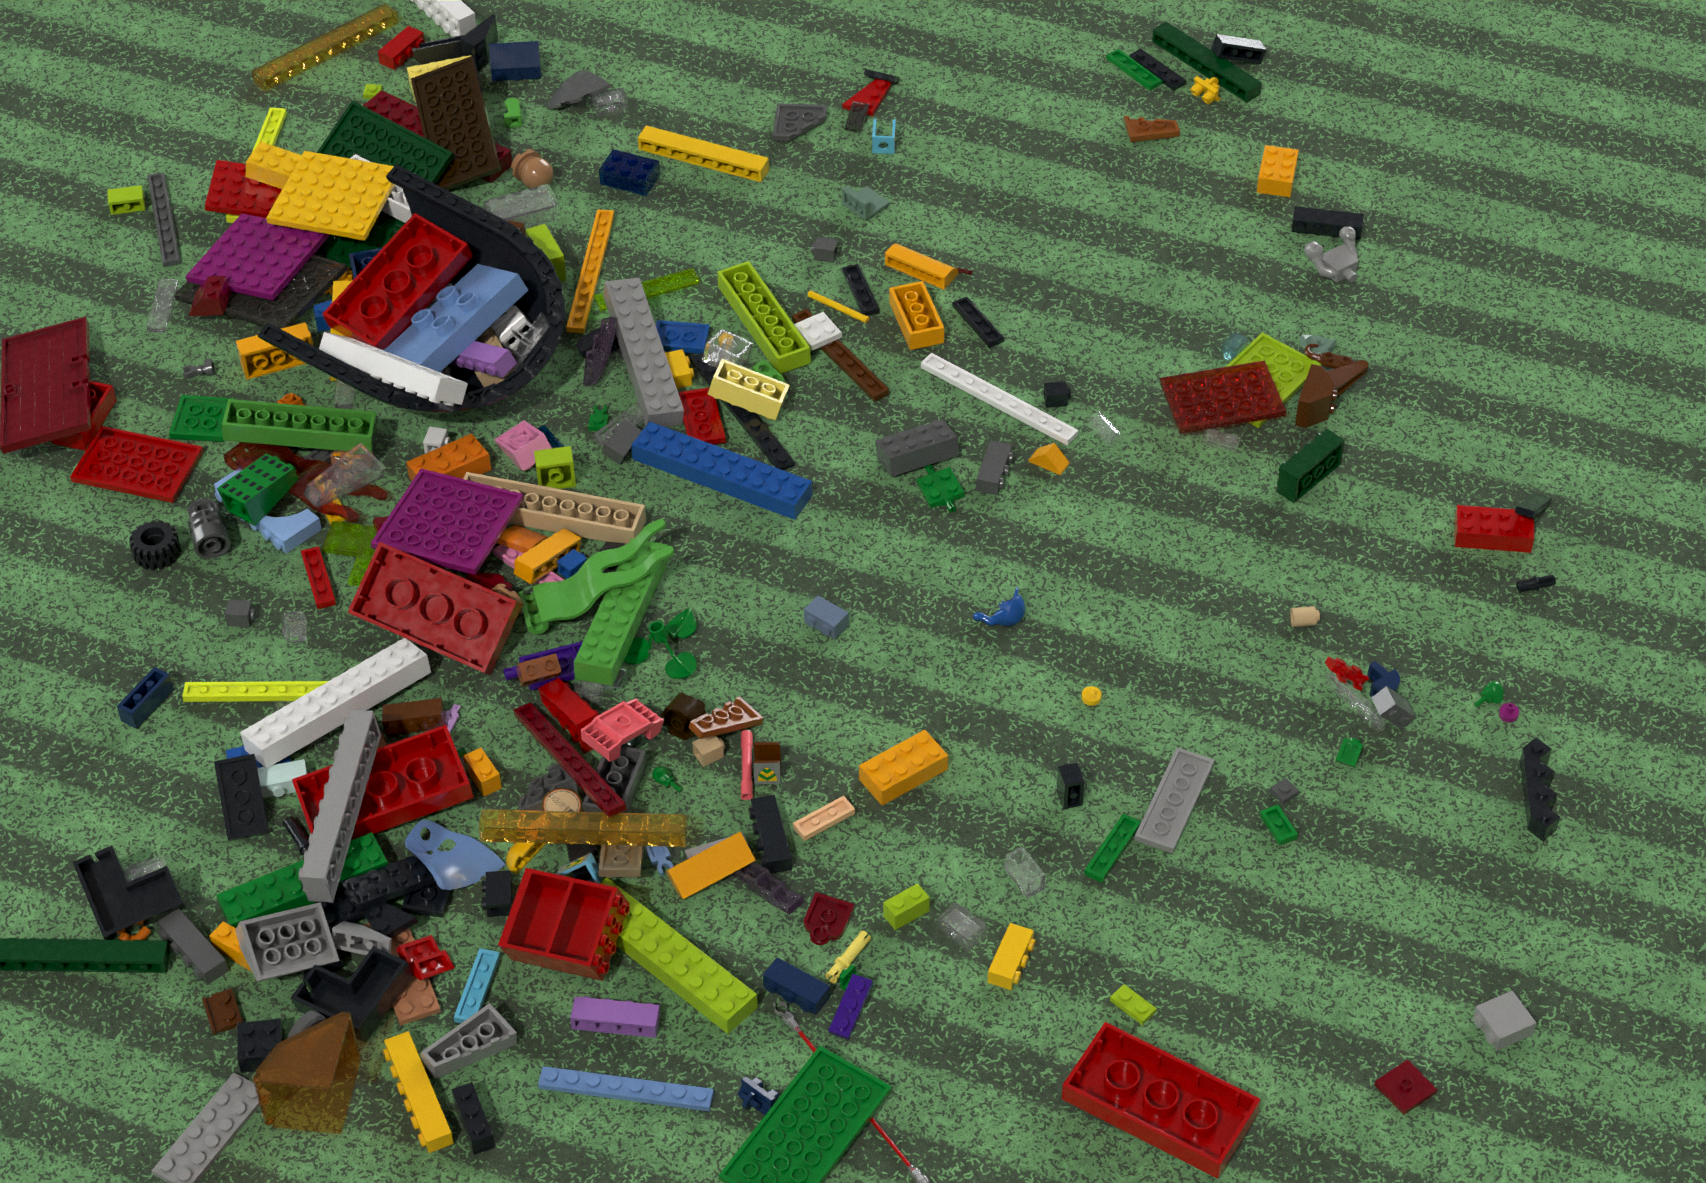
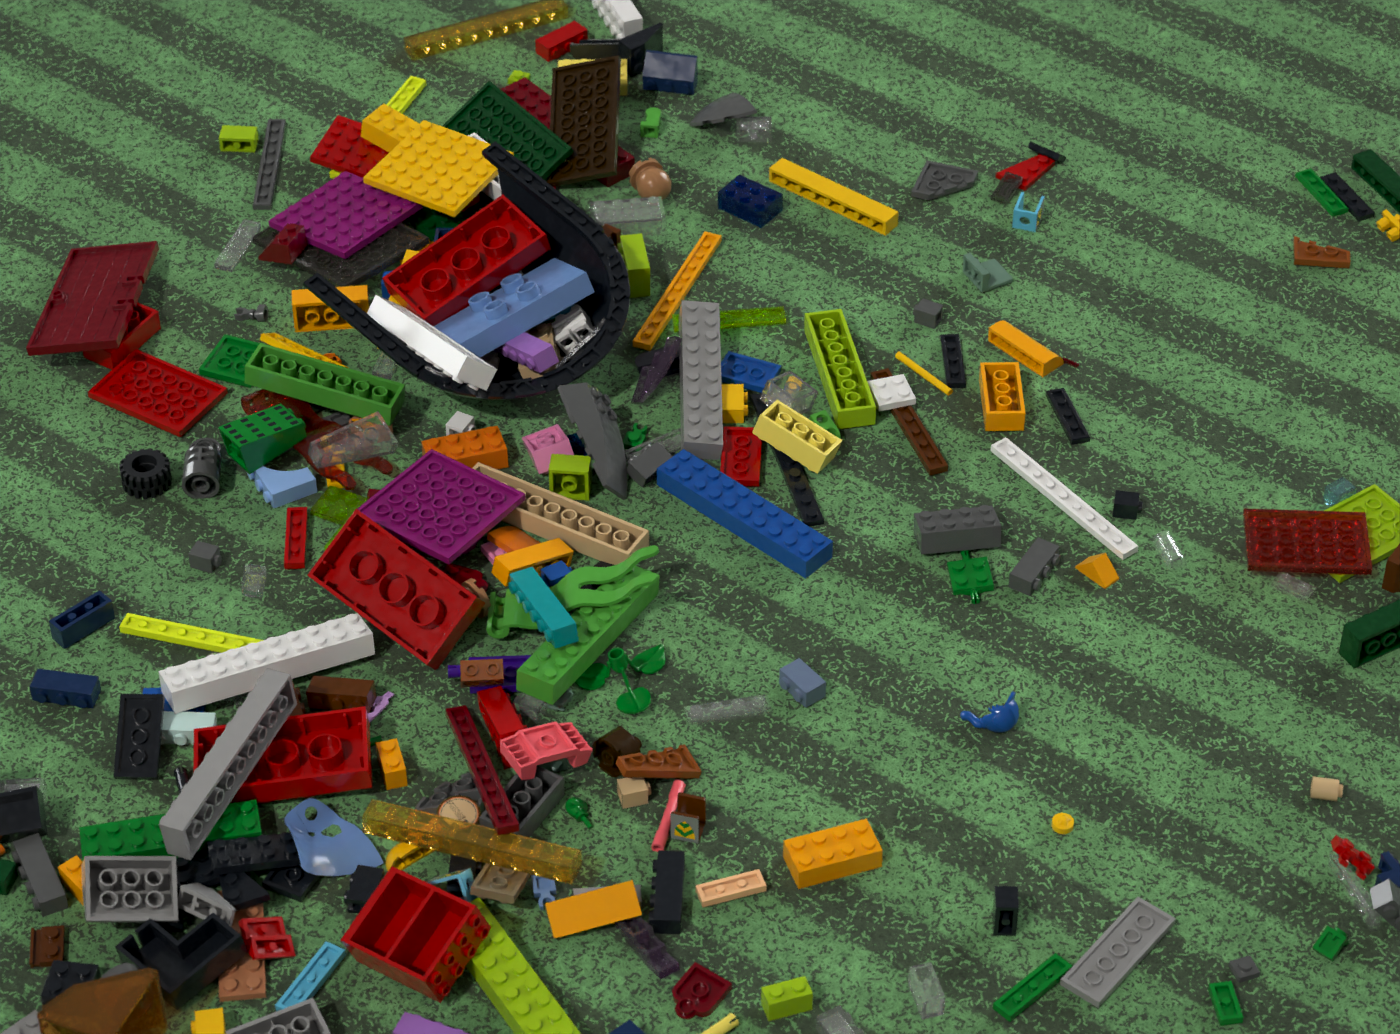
camera: 15 degrees right, 5 degrees down
(152, 766) = (65, 688): none -> dark blue brick
(252, 395) = (282, 342): none -> yellow tile
(571, 421) = (600, 433): none -> dark grey wedge
(577, 597) = (543, 607): none -> teal brick
(766, 656) = (727, 710): none -> clear plate

